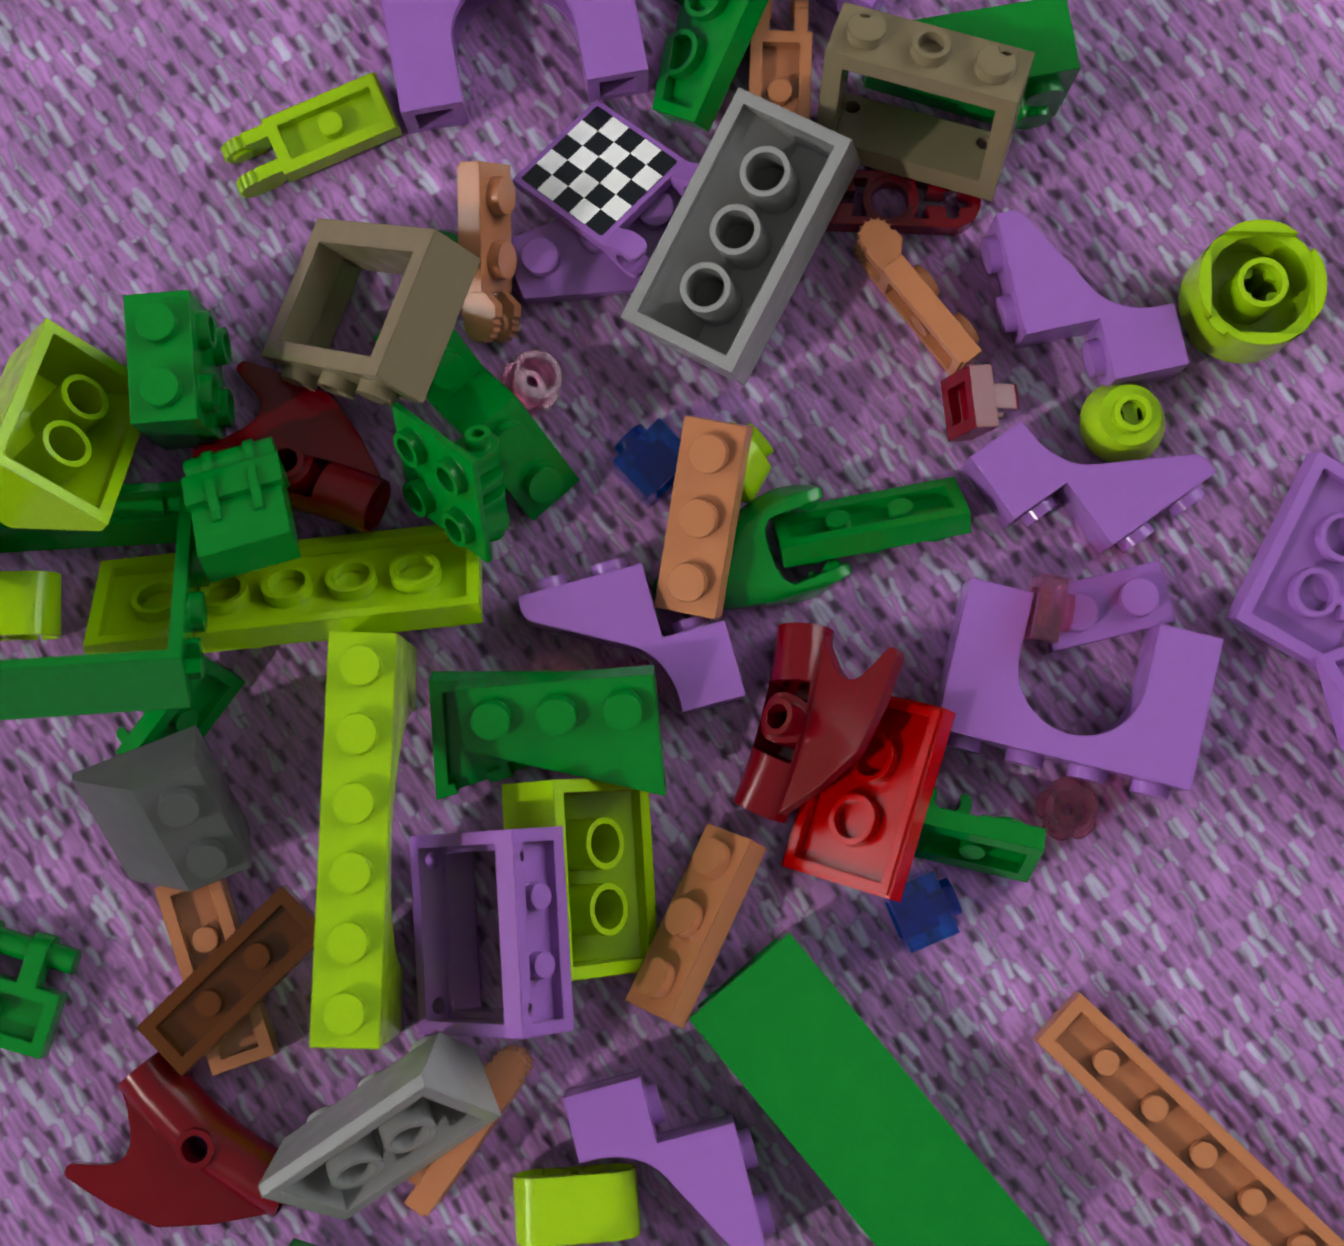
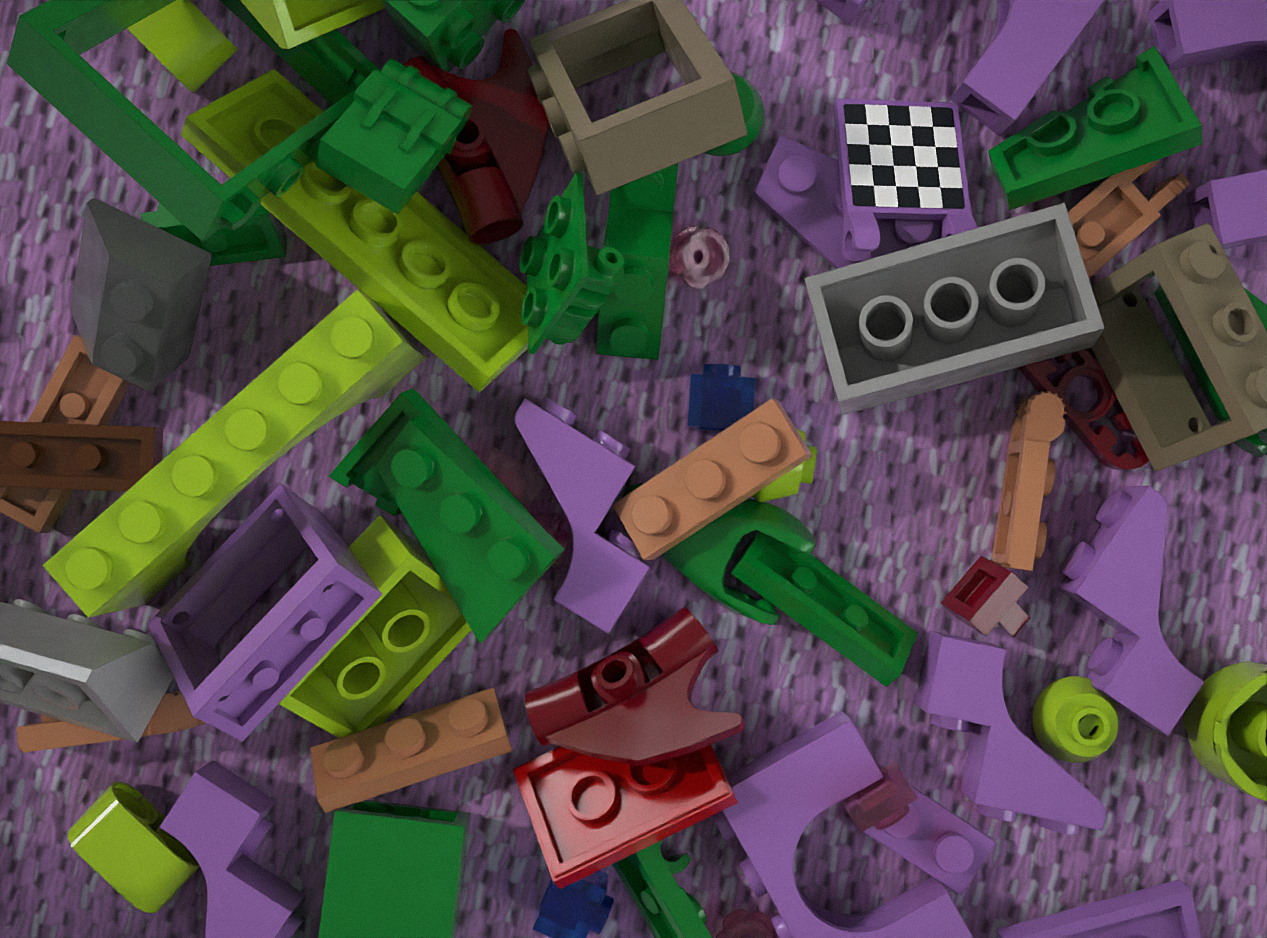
camera: 45 degrees right, 5 degrees up
(484, 228) = (771, 119): nougat hinge -> none

